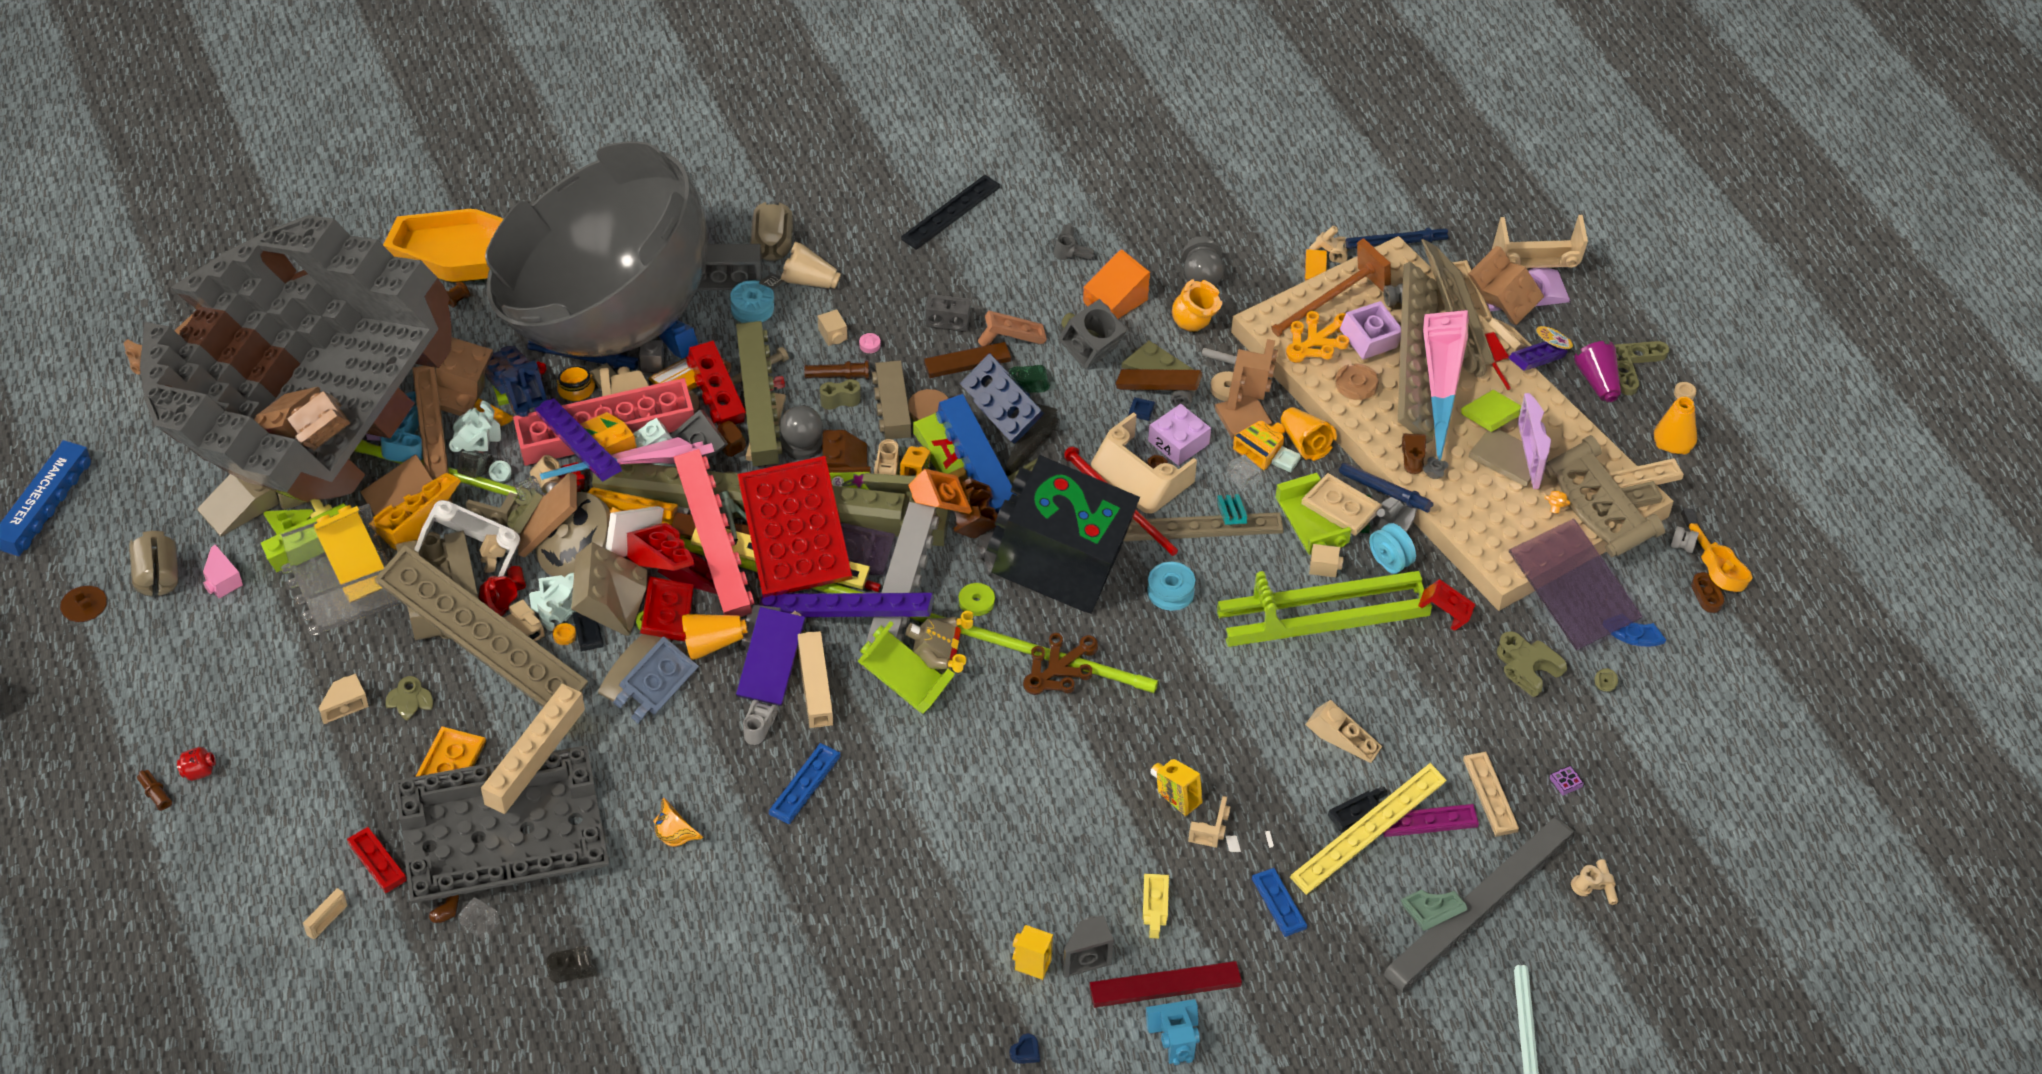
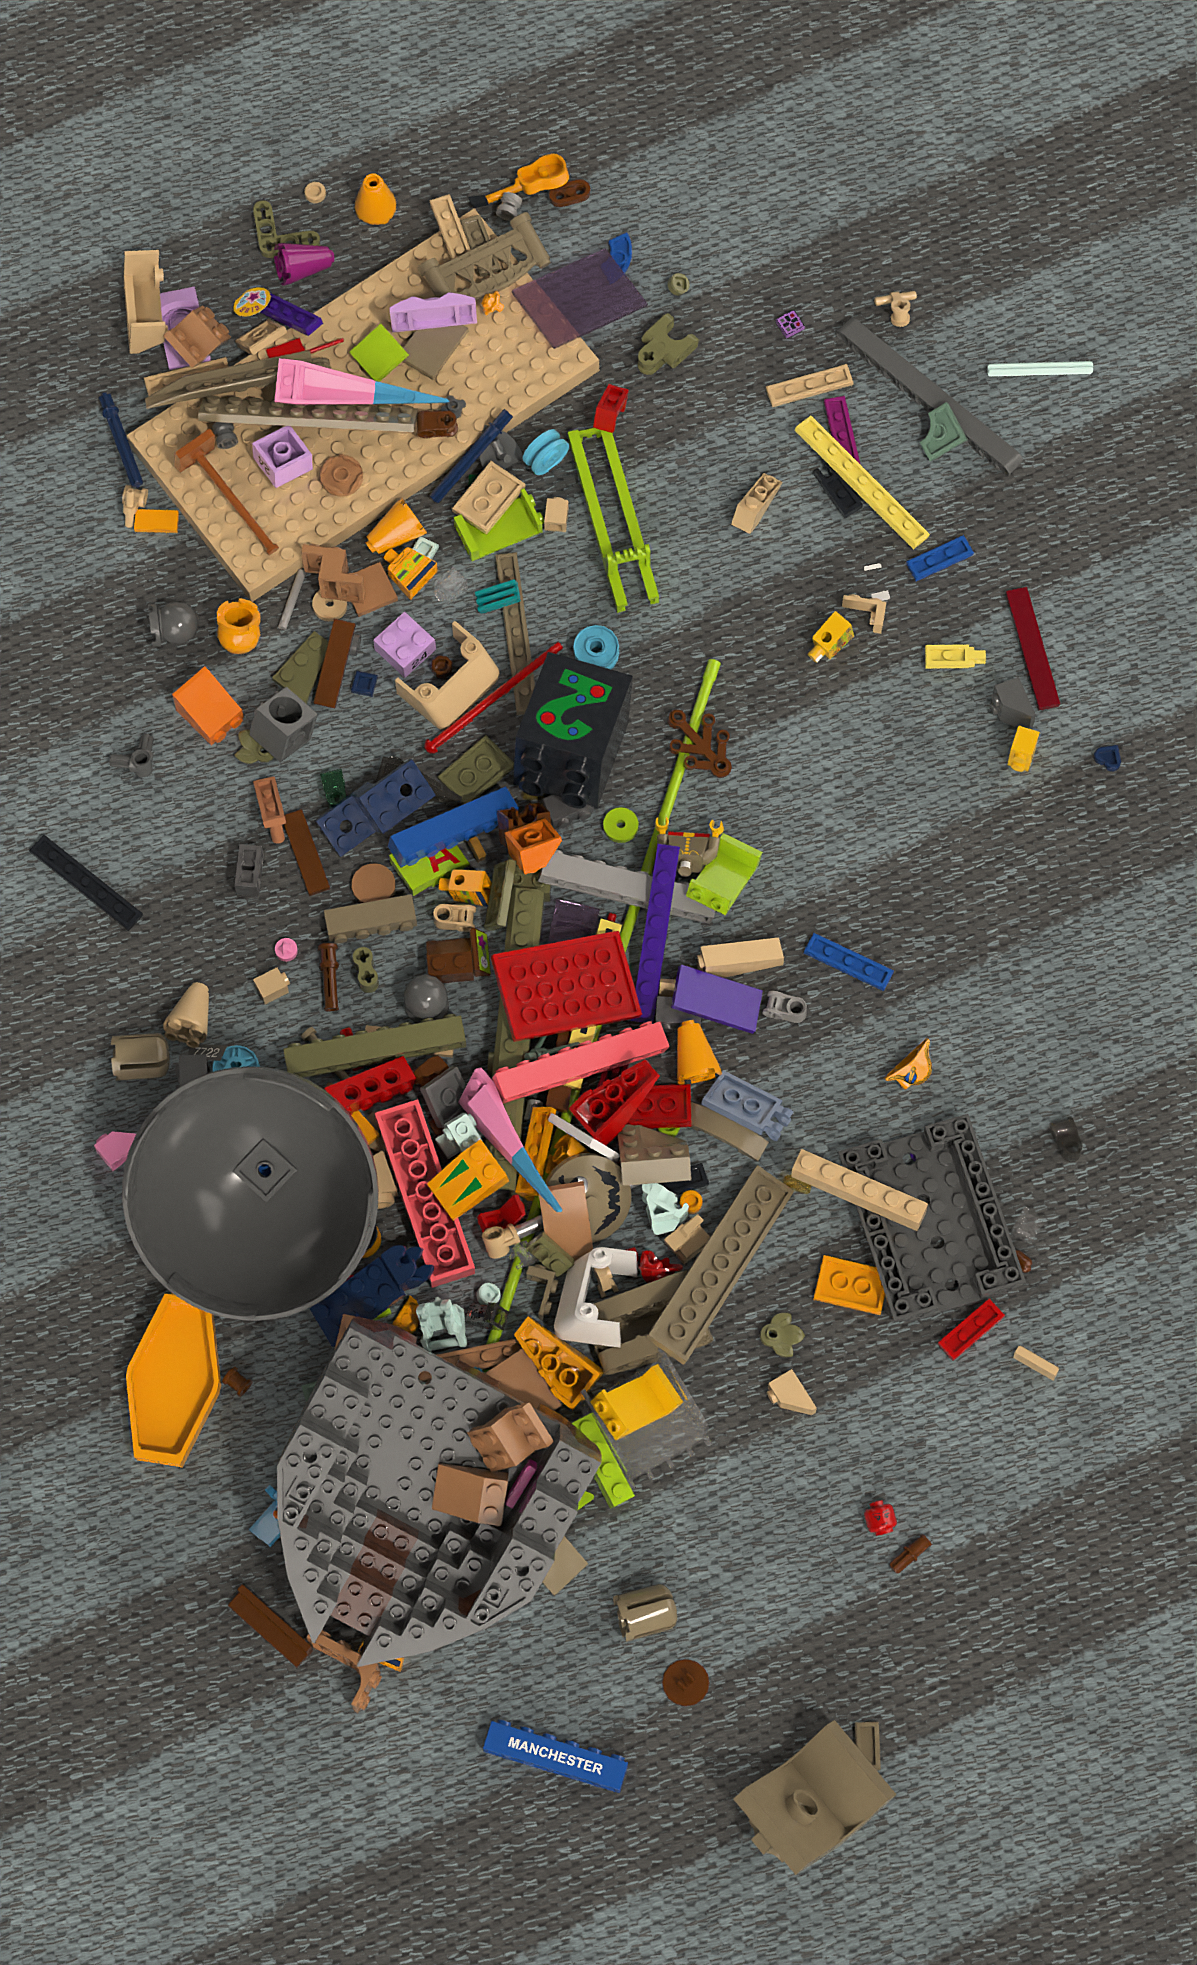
camera: 90 degrees left, 20 degrees up
(220, 574) = (644, 1548): bright pink slope -> none
(578, 439) = (492, 1191): dark purple plate -> none
(1177, 1023) = (1072, 643): dark azure tile -> none
(1298, 351) = (286, 511): light orange plant -> none

